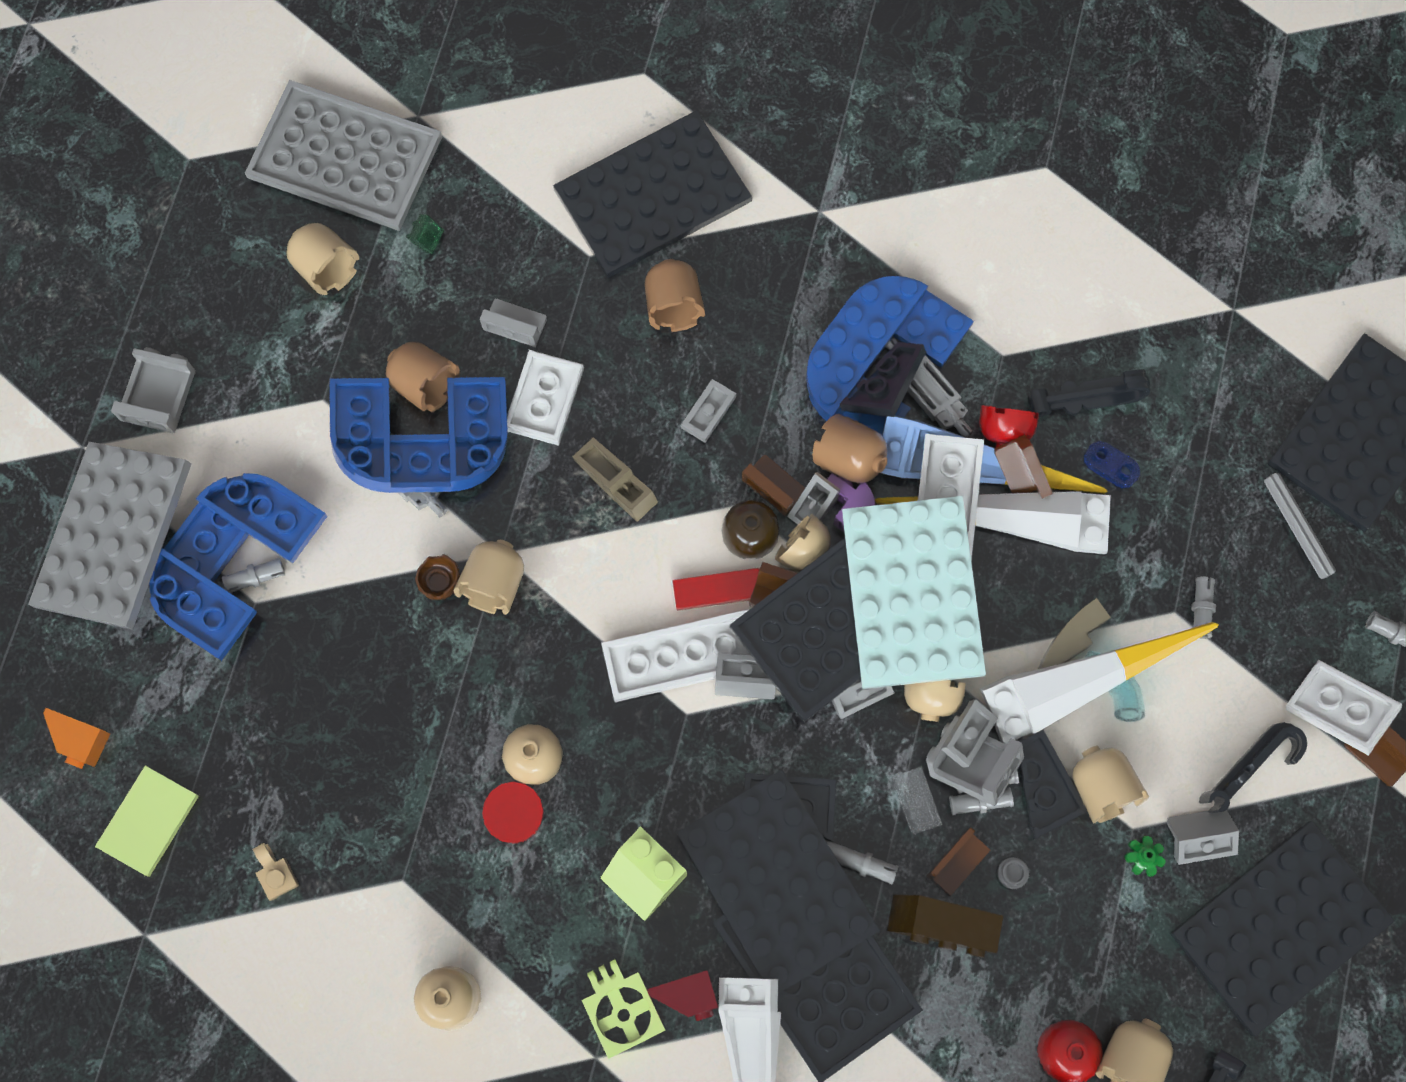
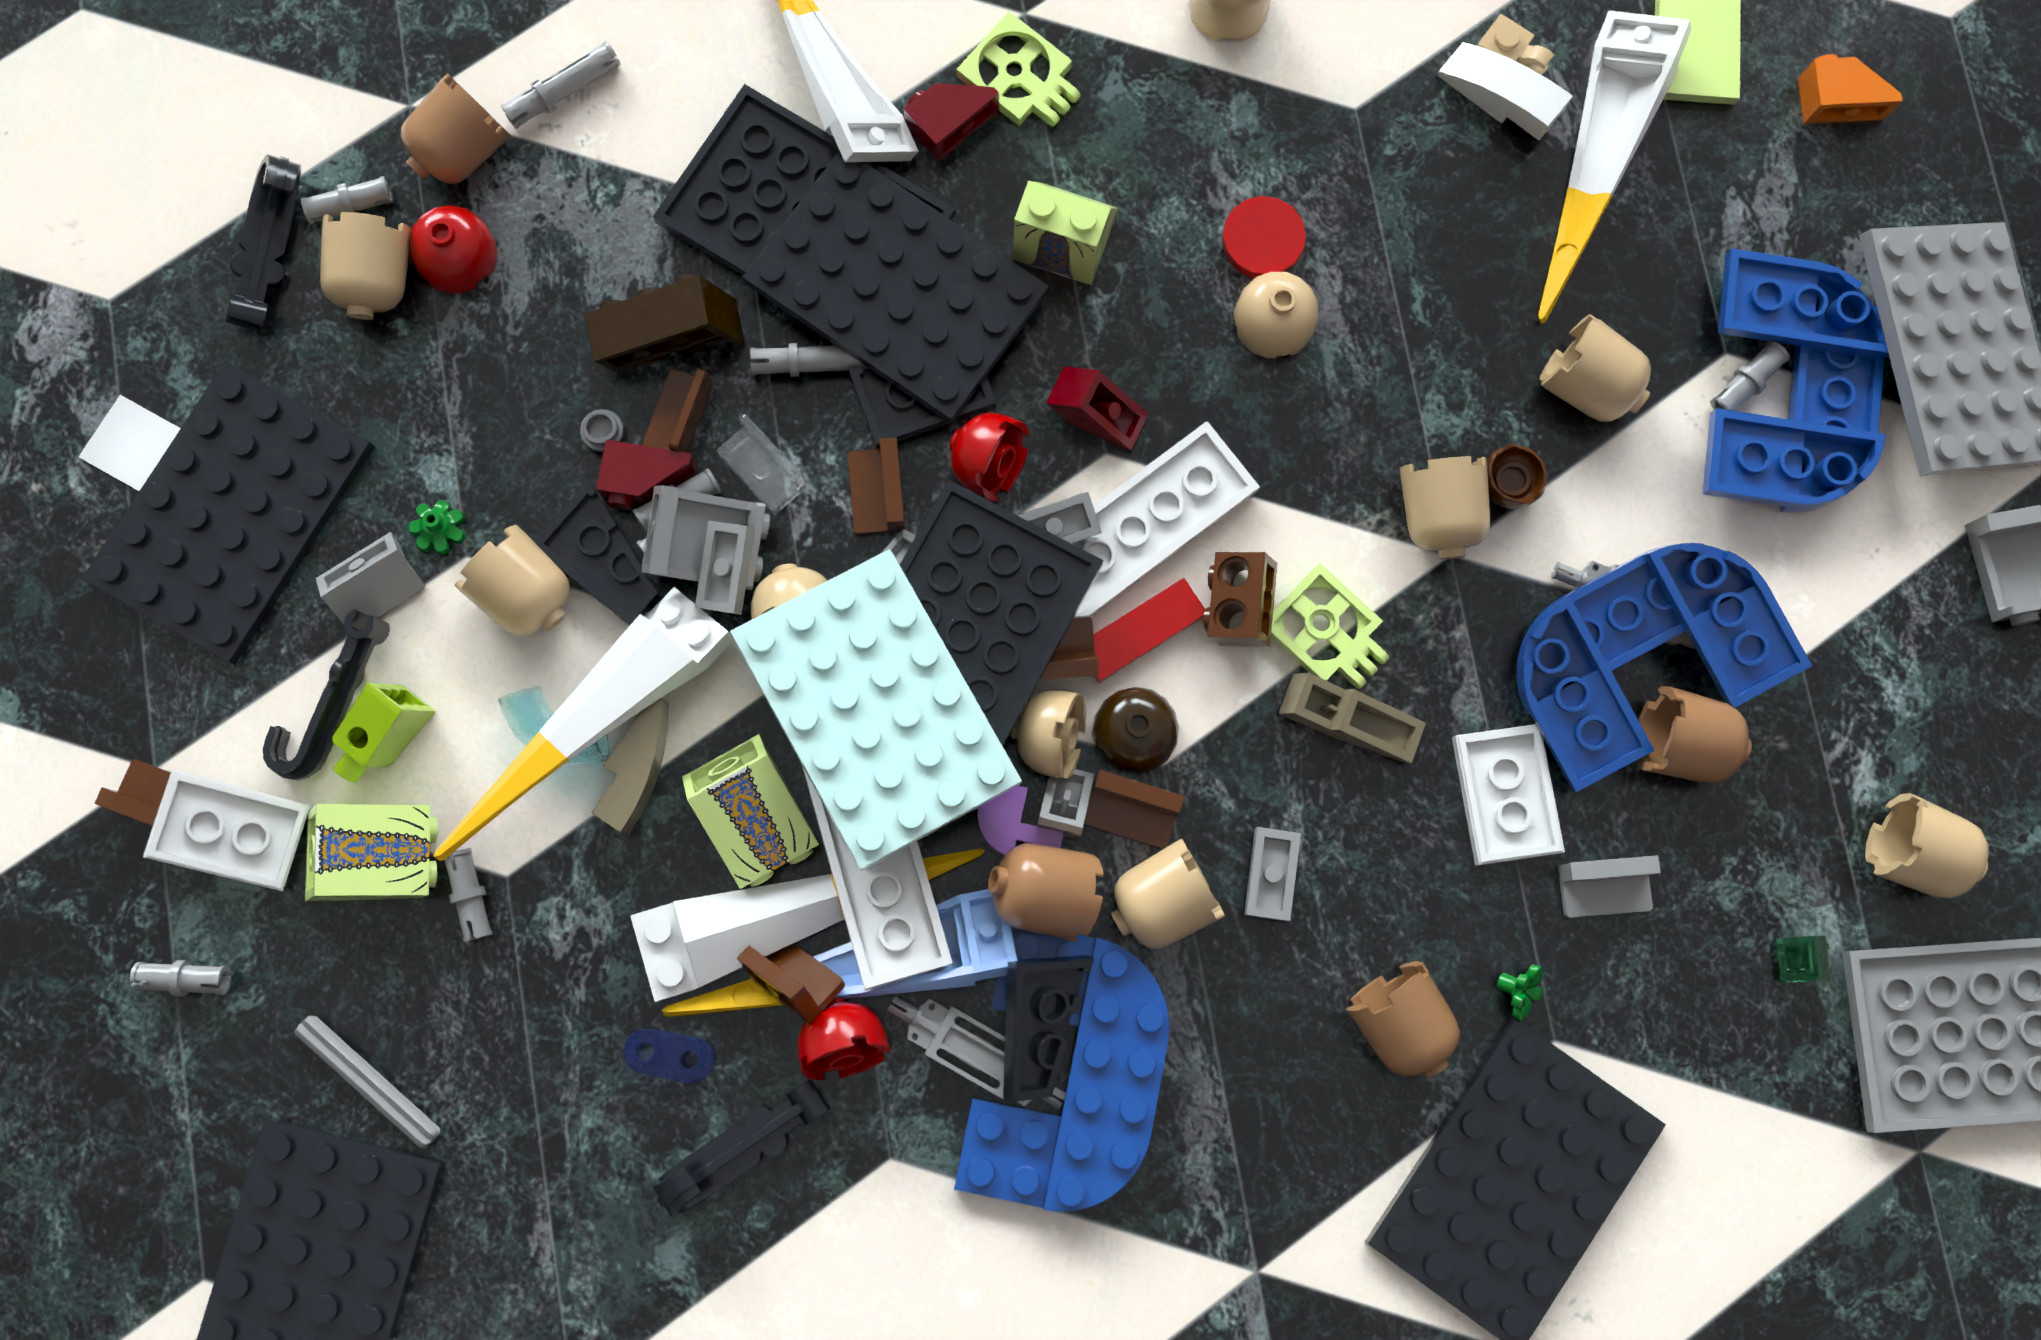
camera: 150 degrees right, 5 degrees up
(216, 805) = (1626, 85): none -> white plate
(298, 843) = (1505, 88): none -> white slope
(350, 618) = (1599, 372): none -> tan cylinder
(594, 519) = (1352, 651): none -> yellowish green piece
(595, 287) = (1522, 990): none -> green plant
(643, 570) = (1253, 598): none -> reddish brown brick
(680, 741) = (1097, 406): none -> dark red slope
(767, 739) = (989, 454): none -> red cylinder
(780, 419) = (1165, 898): none -> tan cylinder
(847, 753) = (876, 489): none -> reddish brown panel
(1000, 829) = (633, 470): none -> dark red slope
(1011, 582) = (749, 812): none -> yellowish green slope
(1226, 730) = (378, 728): none -> lime torso
(1258, 656) = (369, 852): none -> yellowish green slope
(1336, 1008) = (129, 442): none -> white sticker

